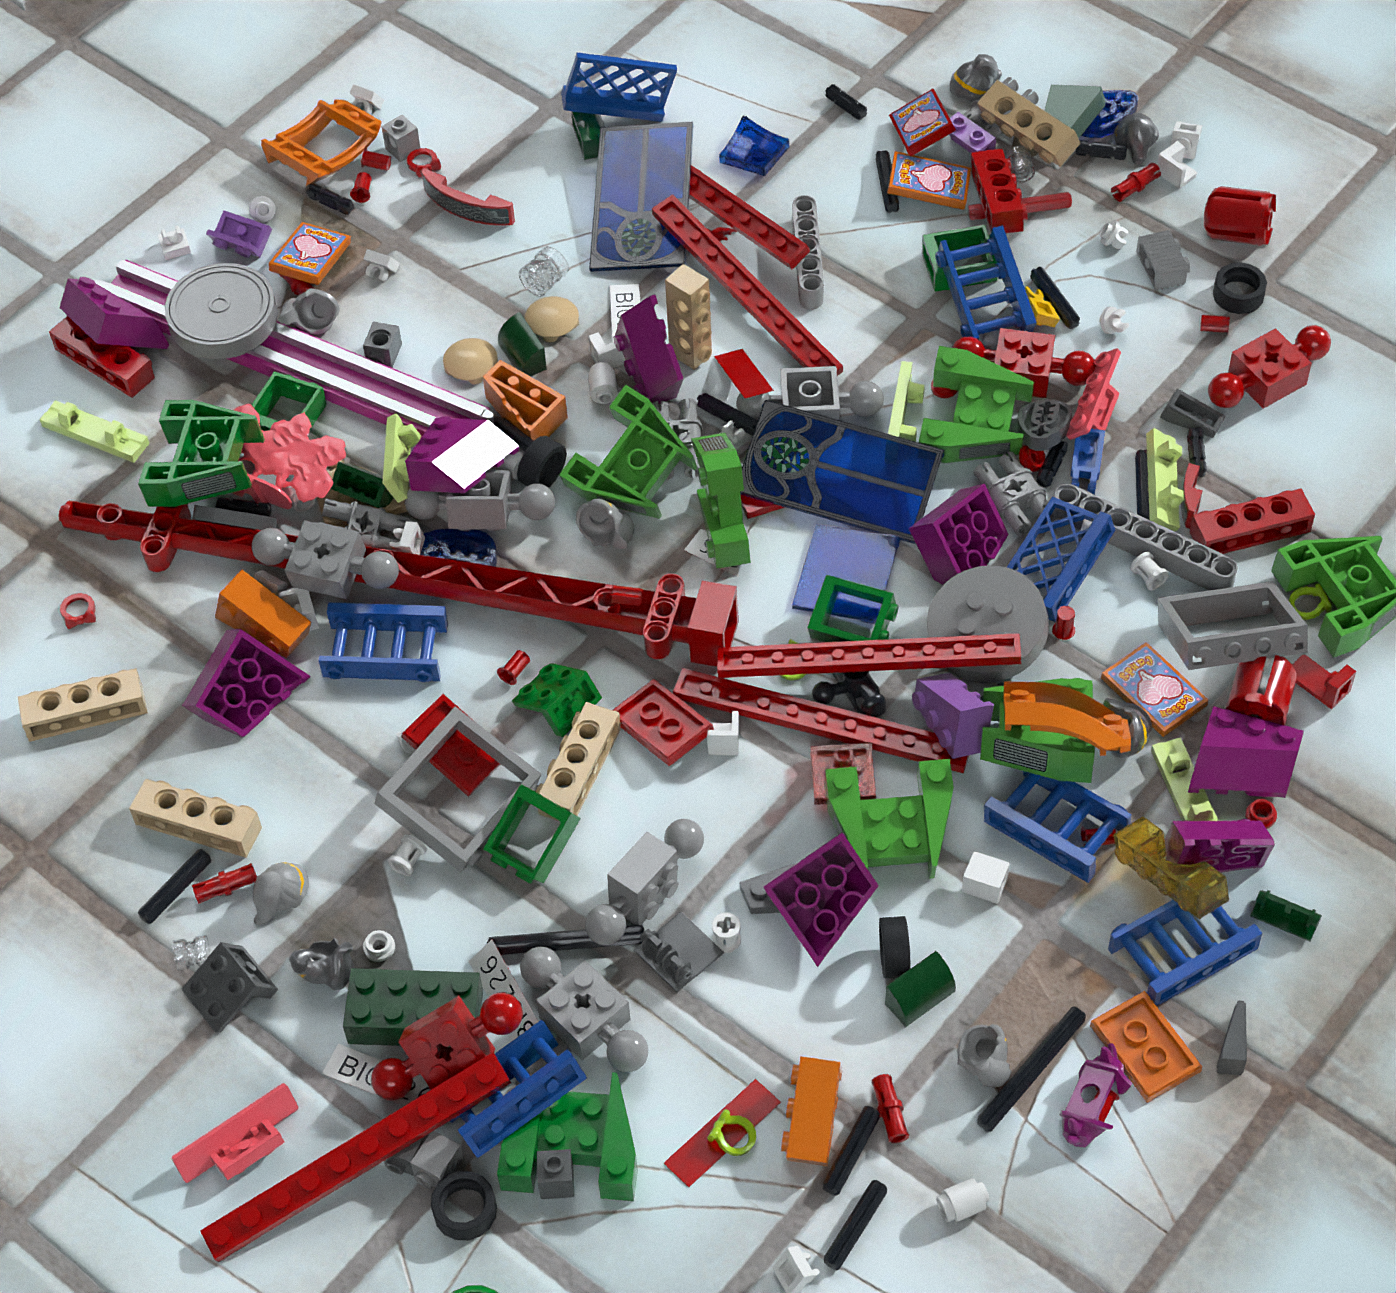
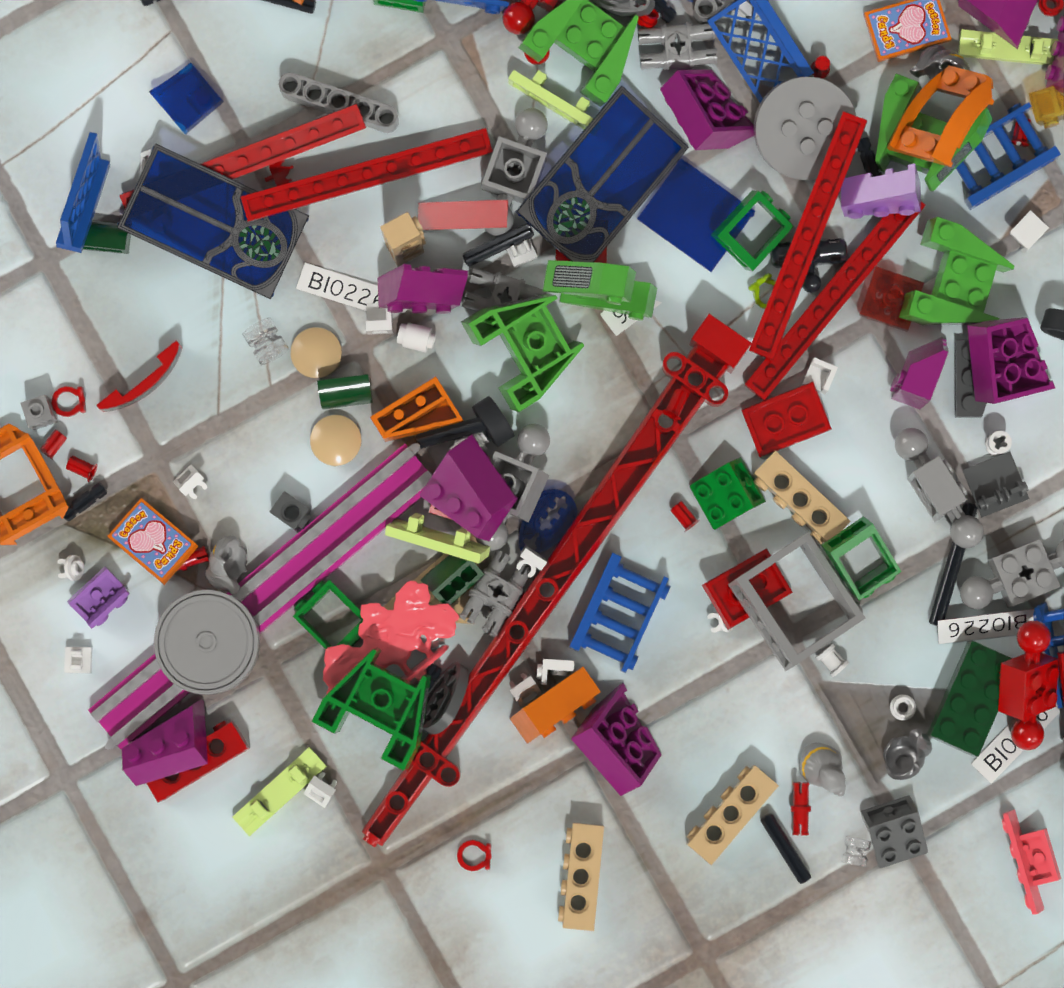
camera: 70 degrees left, 30 degrees up
(105, 458) = (319, 790): none -> white tile
(325, 559) = (569, 597): light grey brick -> none
(604, 524) = (577, 390): light grey hair -> none
(768, 814) = (920, 374): none -> magenta wedge

